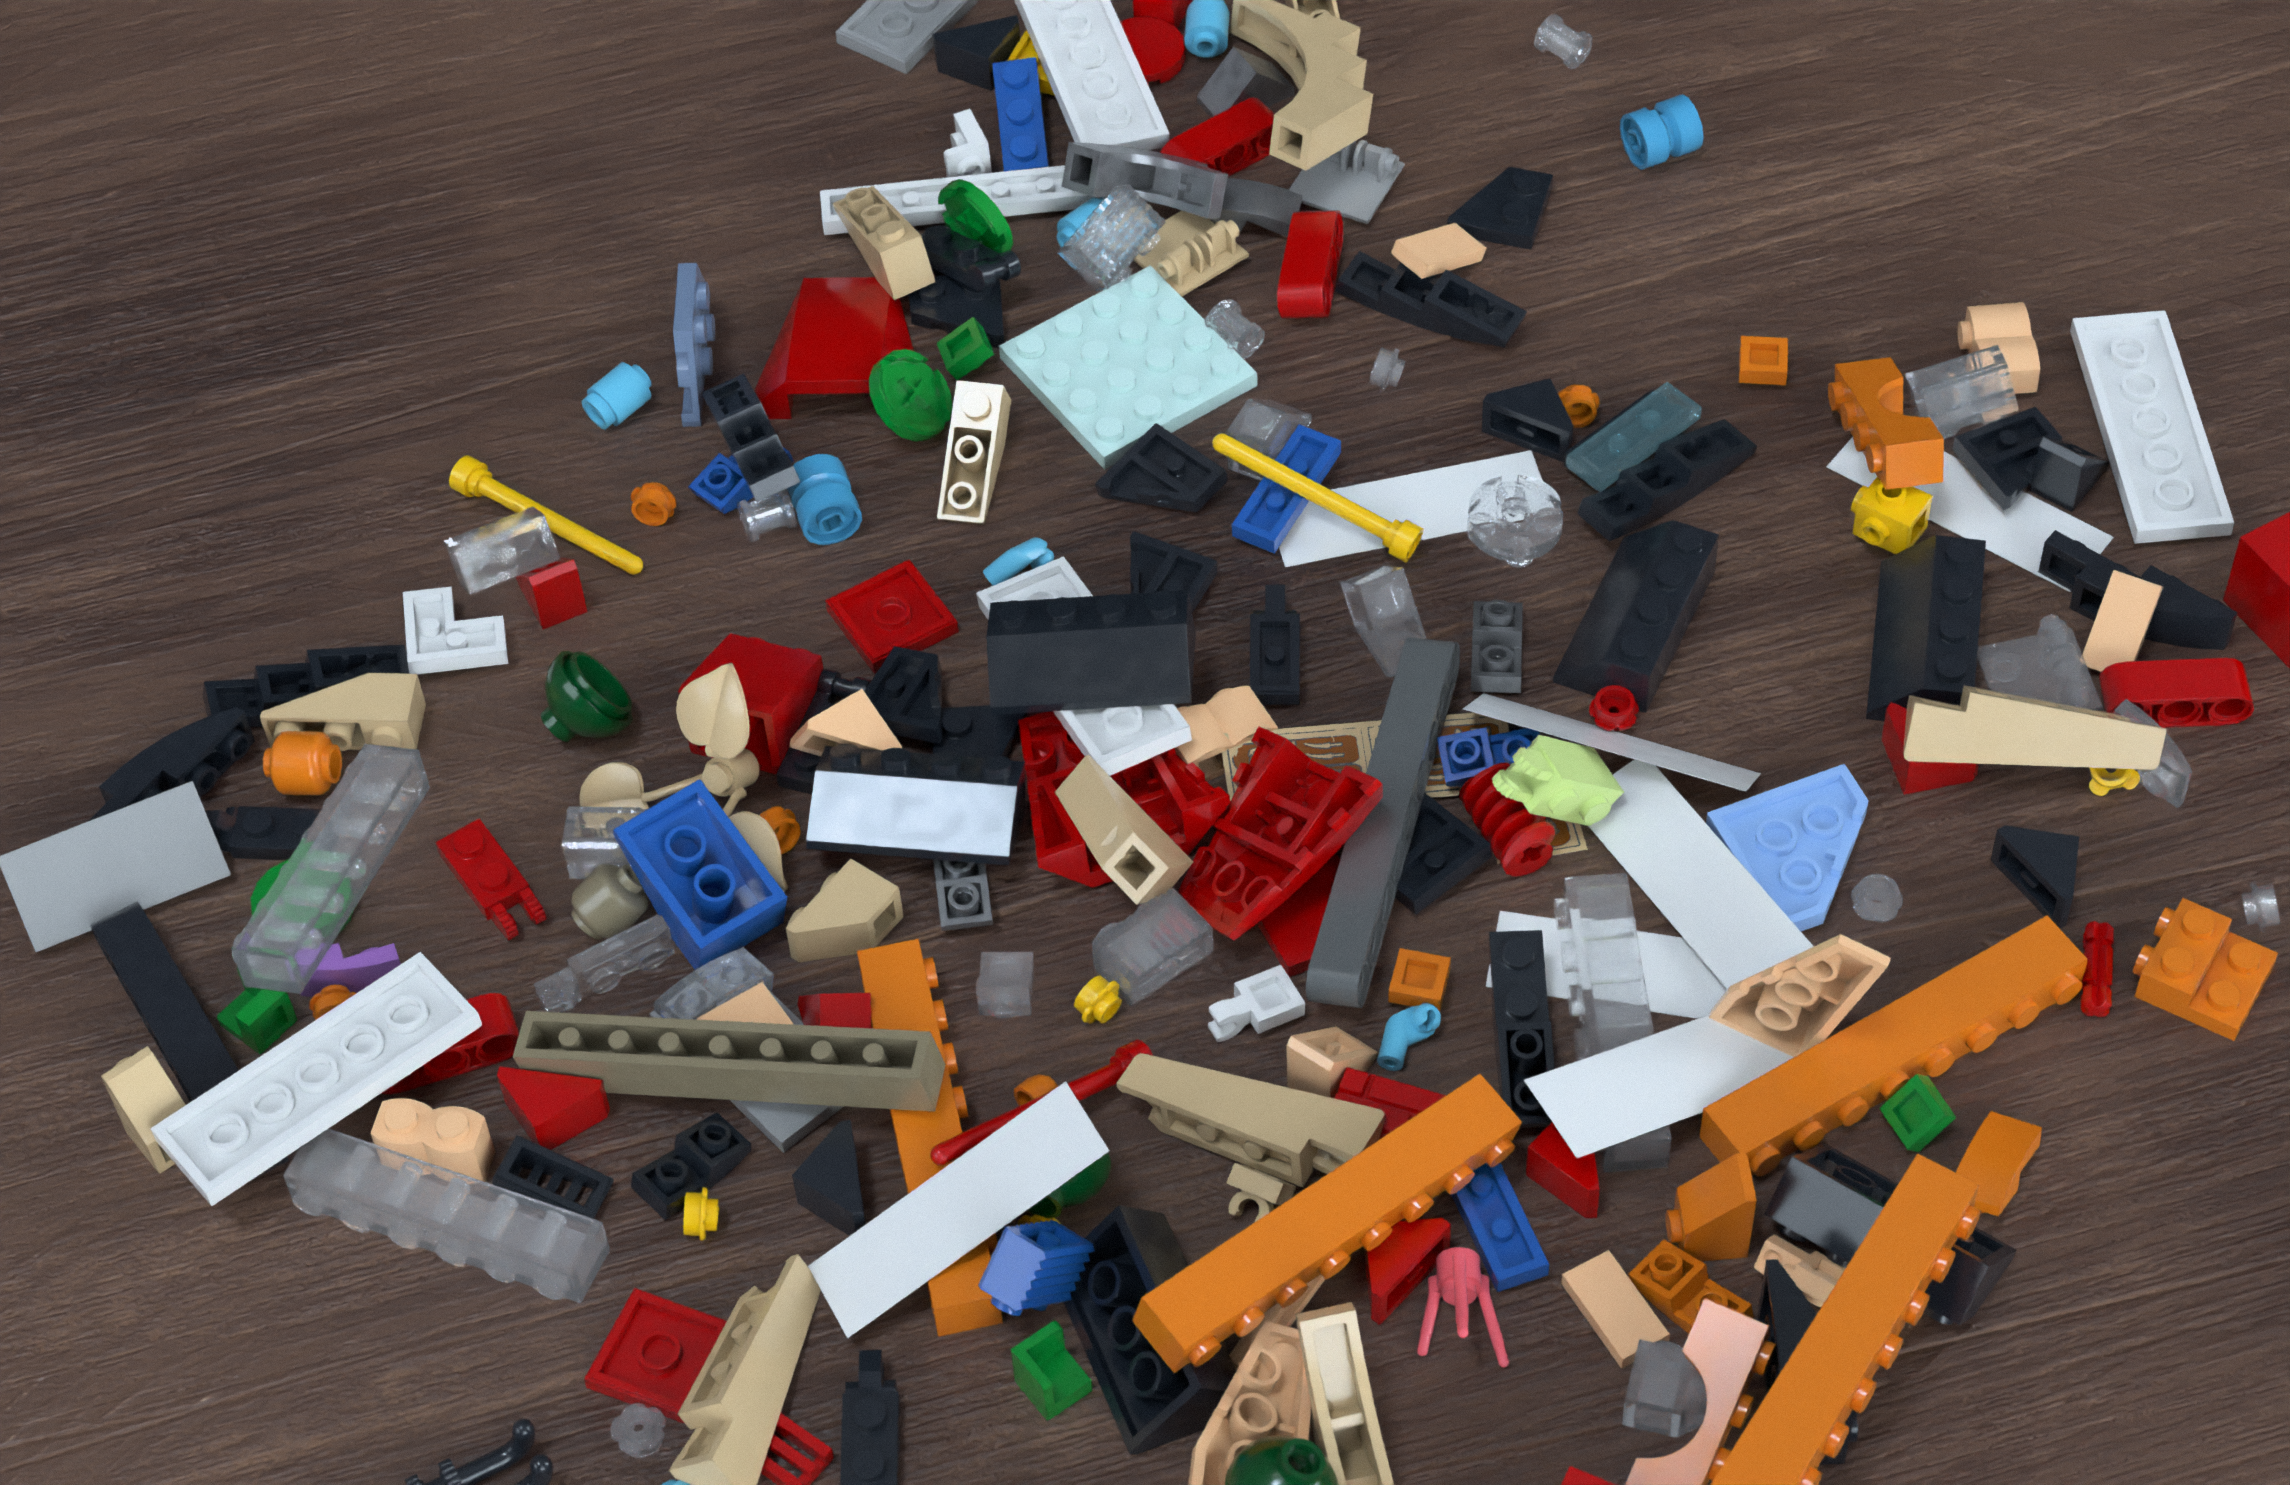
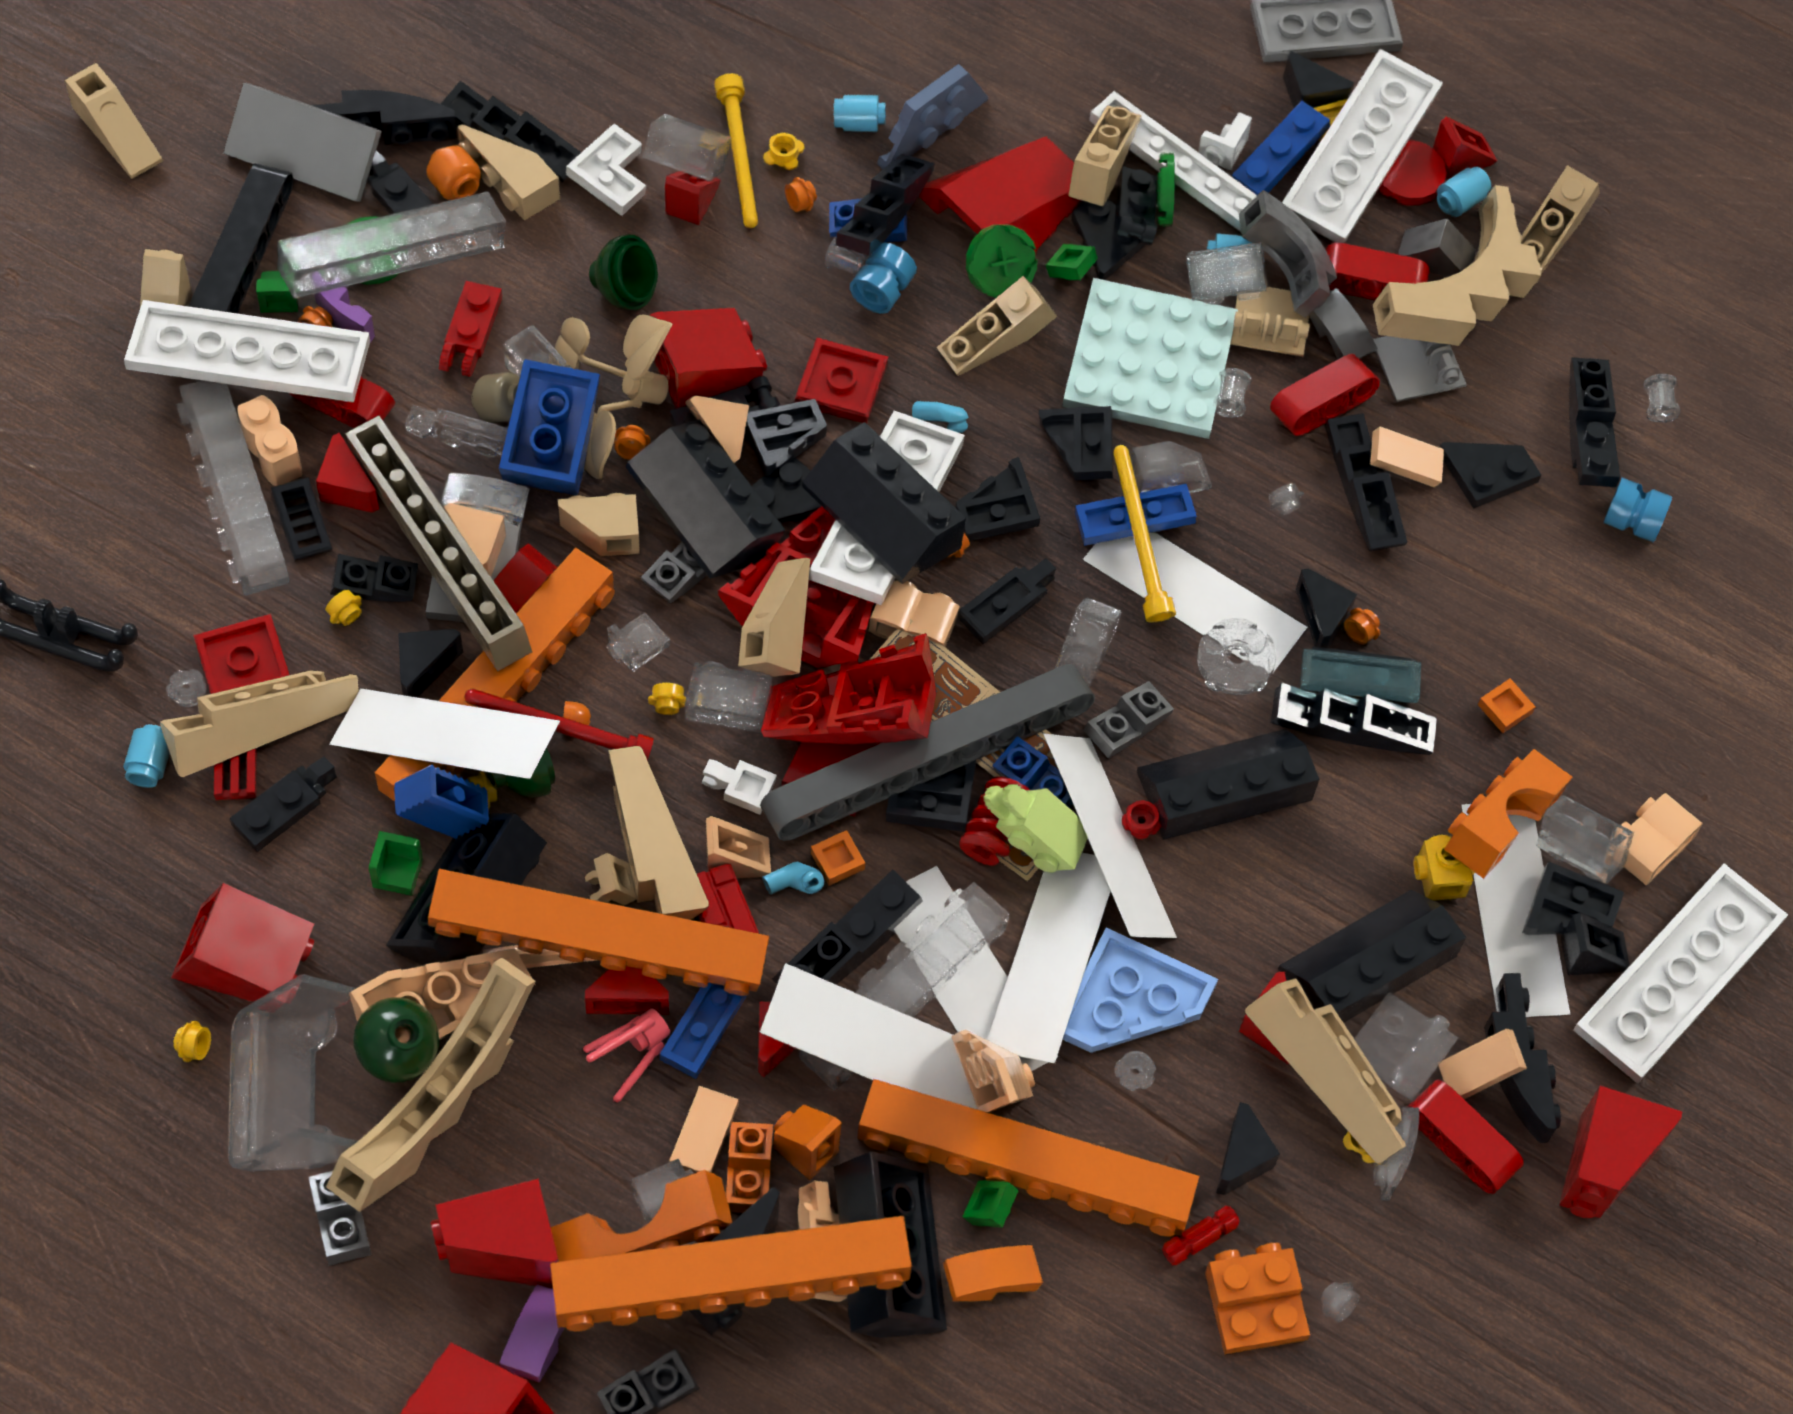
camera: 40 degrees right, 10 degrees up
(587, 483) = (783, 143): none -> yellow plate
(1534, 103) = (1591, 422): none -> black slope

